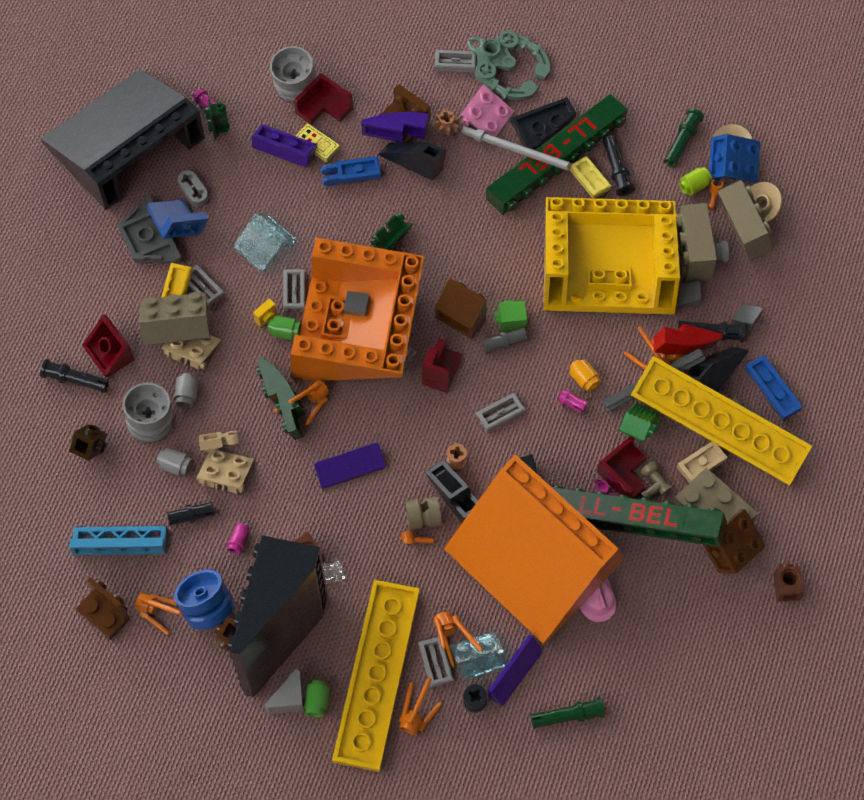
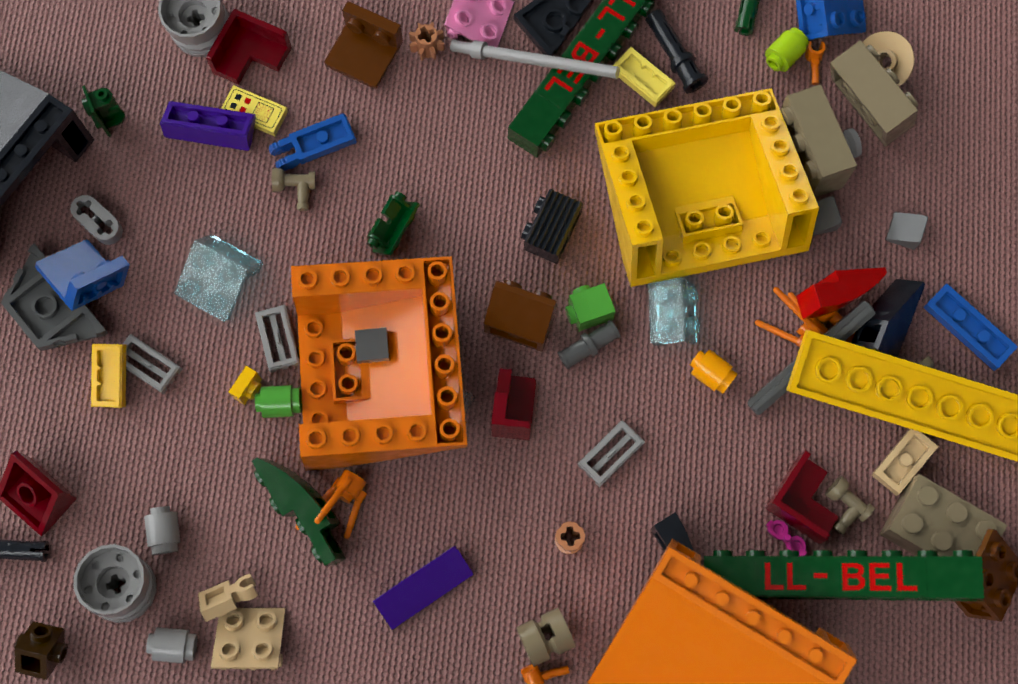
camera: 15 degrees left, 10 degrees up
(174, 318) = (117, 430): dark tan brick -> none
(191, 351) = (152, 460): tan hinge -> none
(201, 97) = (75, 80): dark pink pin -> none
(338, 195) = (303, 182): none -> dark tan piece
(396, 125) = (359, 62): dark purple slope -> none
(418, 157) = (397, 101): black slope -> none
(452, 489) = (581, 592): black slope -> none
(500, 258) = (552, 226): none -> black brick
(568, 332) = (673, 311): none -> clear light blue bracket
(572, 401) = (705, 413): dark pink pin -> none
(640, 422) = (810, 427): green brick -> none
(728, 331) = (881, 257): black pin -> none

